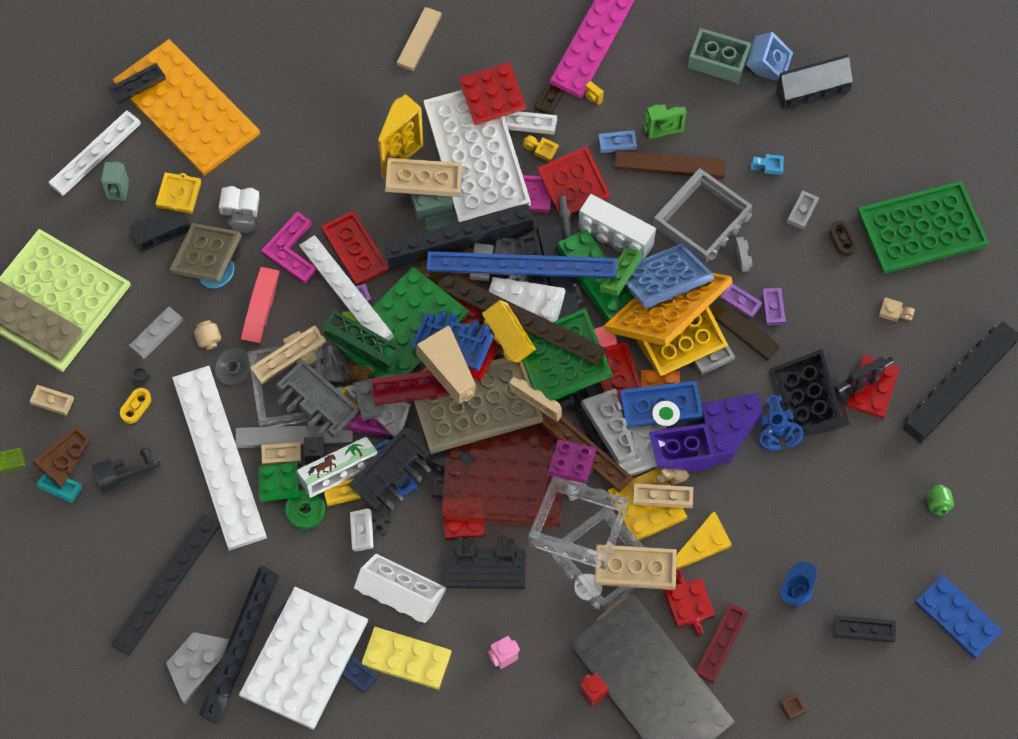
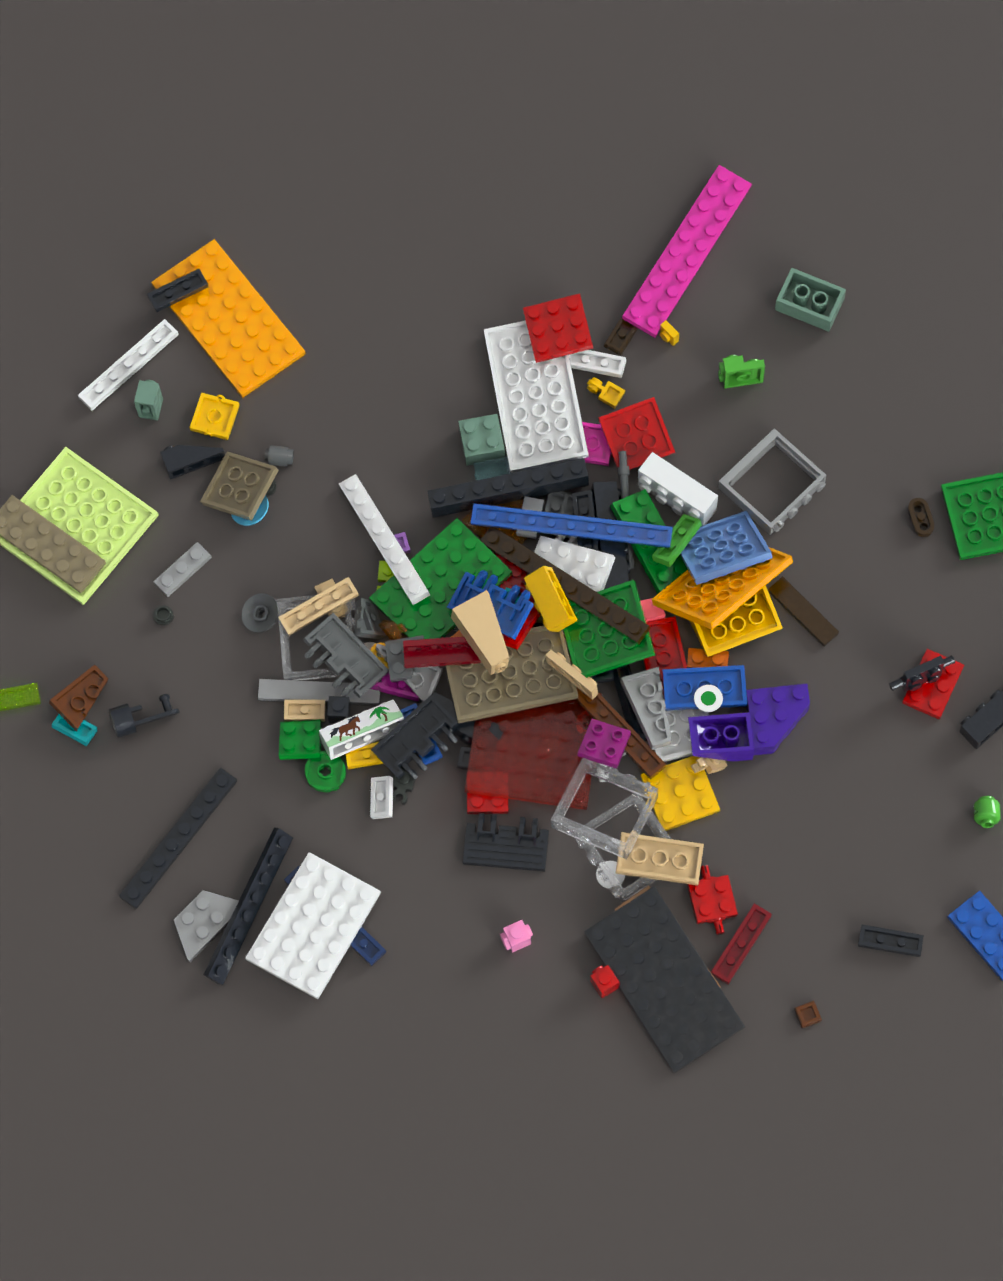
camera: 10 degrees right, 5 degrees up
(51, 400) = (70, 635): tan plate -> none
(133, 405) = (156, 648): yellow plate -> none
(207, 335) = (235, 576): tan head -> none
(219, 458) = (240, 709): white plate -> none
(239, 201) = (278, 431): white brick -> none
(260, 305) = (293, 547): coral slope -> none
(279, 248) = (317, 485): dark pink plate -> none
(355, 248) = (397, 491): red plate -> none
(356, 346) = (391, 604): dark green fence -> none
(399, 588) = (416, 861): white slope -> none
(401, 132) = (454, 371): yellow slope -> none
(406, 658) = (417, 933): light yellow plate -> none
(419, 39) = (485, 256): tan tile -> none
(423, 177) = (475, 420): tan plate -> none
(617, 141) = (689, 390): medium blue plate -> none
(663, 495) = (696, 785): tan plate -> none
(668, 164) = (743, 419): reddish brown tile -> none
(705, 542) = (736, 837): yellow wing -> none
(714, 360) = (767, 643): light grey plate -> none
(741, 249) = (810, 519): light grey plate -> none
(741, 301) = (803, 579): medium lavender plate -> none
(769, 56) = (866, 304): light blue slope -> none
(770, 163) = (854, 427): dark azure plate -> none
(773, 306) = (837, 588): medium lavender plate -> none
(779, 426) = (827, 719): blue animal -> none
(799, 584) = (827, 889): blue piece -> none
(803, 210) = (881, 482): light grey plate -> none
(810, 393) = (862, 689): black slope -> none
(814, 82) = (911, 338): slope -> none
(893, 310) = (965, 601): tan plate -> none

